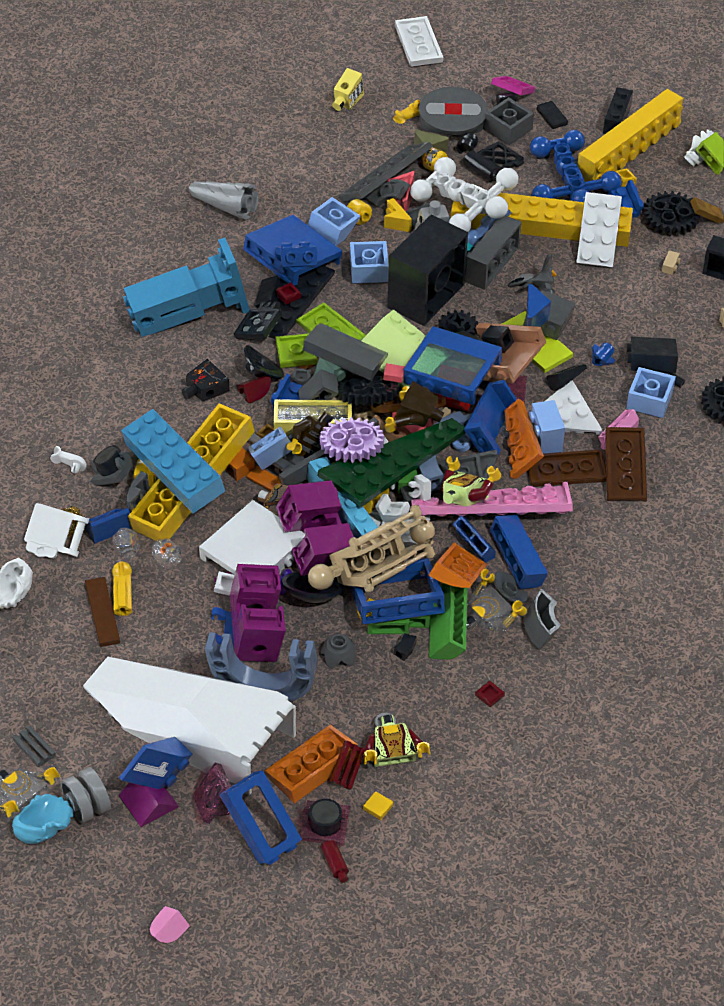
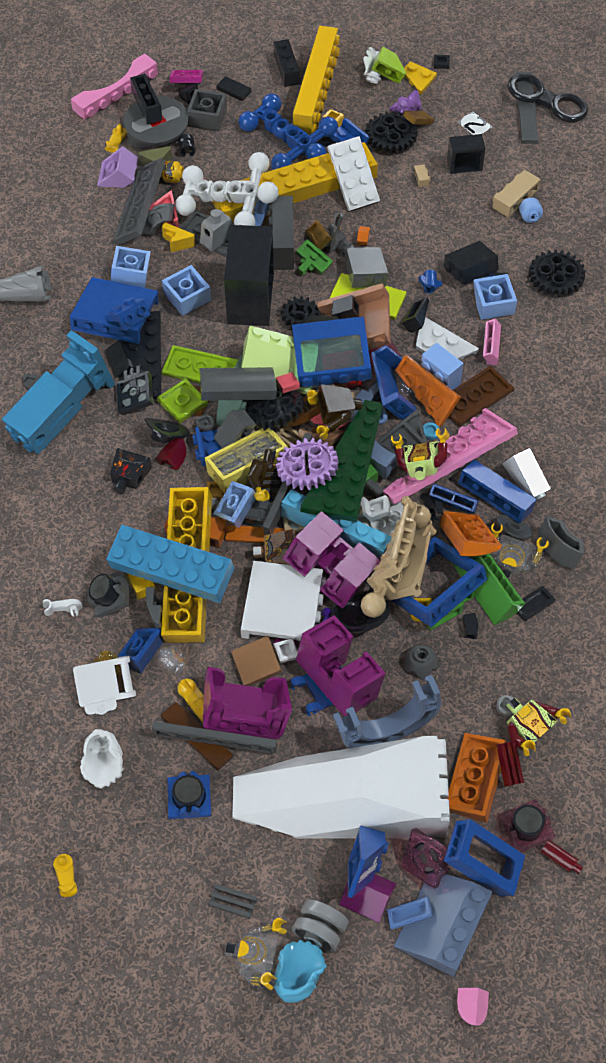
camera: 30 degrees left, 10 degrees up
(59, 651) = (189, 793): none -> piece
(113, 616) = (214, 737): none -> dark grey tile
(152, 606) = (246, 708): none -> magenta windscreen
(166, 553) = (214, 650): clear head -> none
(169, 830) = (409, 913): none -> medium blue tile
(195, 580) = (256, 661): none -> medium nougat tile
(195, 855) = (446, 935): none -> sand blue slope
(288, 293) = (140, 352): dark red tile -> none
(348, 90) = (54, 146): light yellow torso -> none
(362, 209) = (143, 244): yellow head -> none
(378, 805) = (555, 784): yellow tile -> none
(389, 138) = (118, 169): none -> lavender slope
(408, 71) = (90, 102): none -> bright pink arch
(418, 41) = (77, 70): white plate -> none
(421, 487) = (385, 476): white tile -> none
(449, 537) = (434, 507): none -> black bar
(453, 86) = (146, 98): none -> black brick
(480, 658) = (535, 603): none -> black tile
(486, 166) = (215, 158): black piece -> none
(489, 694) = (565, 630): dark red tile -> none
(505, 287) = (312, 259): none -> bright green hinge
(505, 478) = (430, 430): none -> medium azure tile
(527, 269) = (318, 235): none -> pearl gold tile
(537, 307) = (364, 267): blue slope -> none
(557, 550) = (527, 474): none -> white slope
(571, 289) = (363, 235): none -> orange piece
(625, 464) = (522, 369): reddish brown tile -> none
(709, 193) = (411, 103): none -> medium lavender hair

